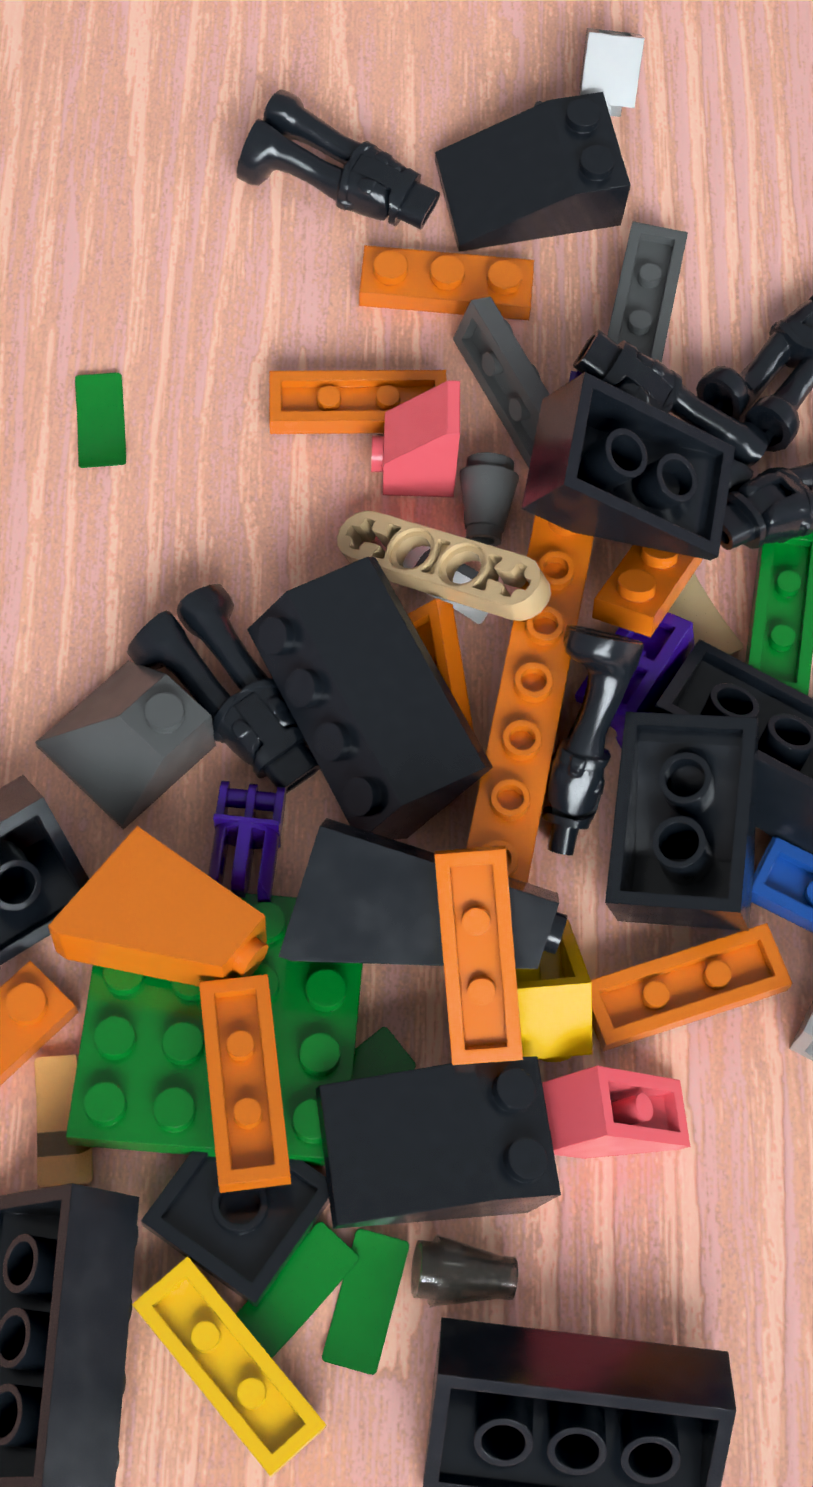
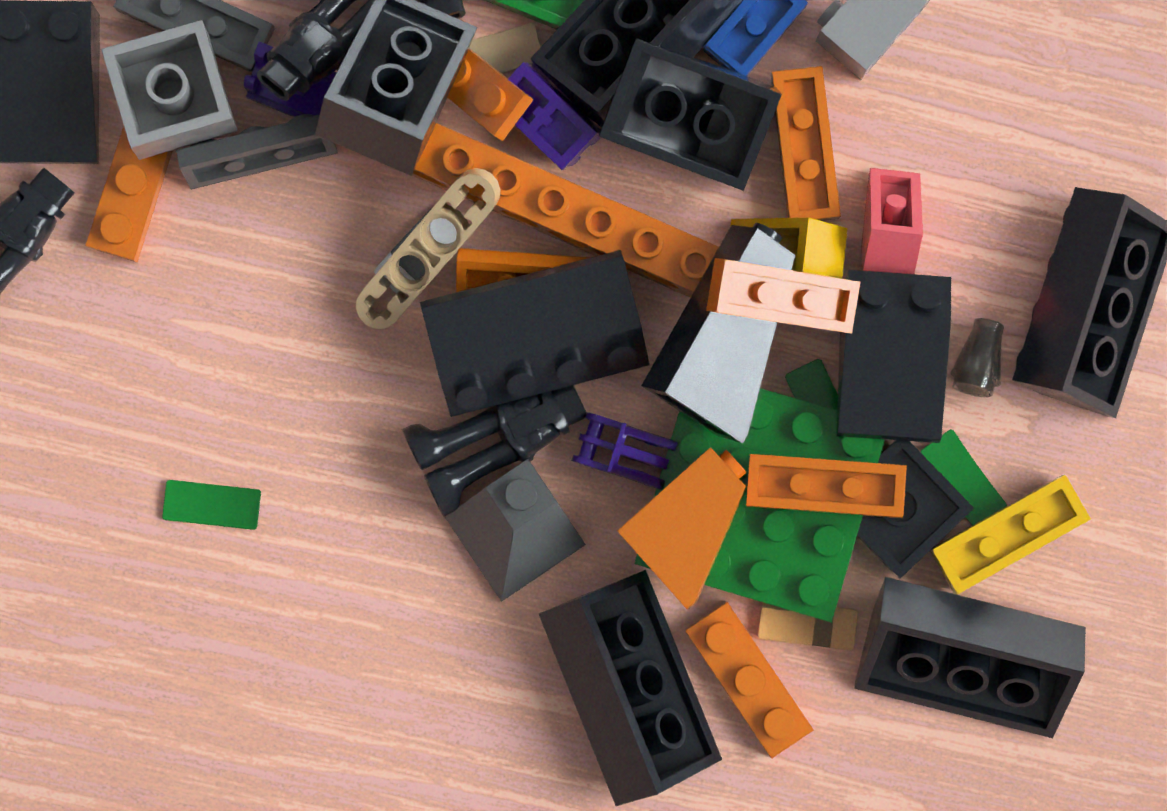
camera: 75 degrees left, 20 degrees up
(342, 398) = (244, 283): orange plate -> none
(366, 1302) = (984, 431): green sticker -> none
(420, 444) = (307, 242): coral slope -> none
(487, 495) = (360, 197): dark grey cone -> none
(554, 268) = (169, 90): none -> light grey brick
(580, 759) = (559, 139): black piece -> none

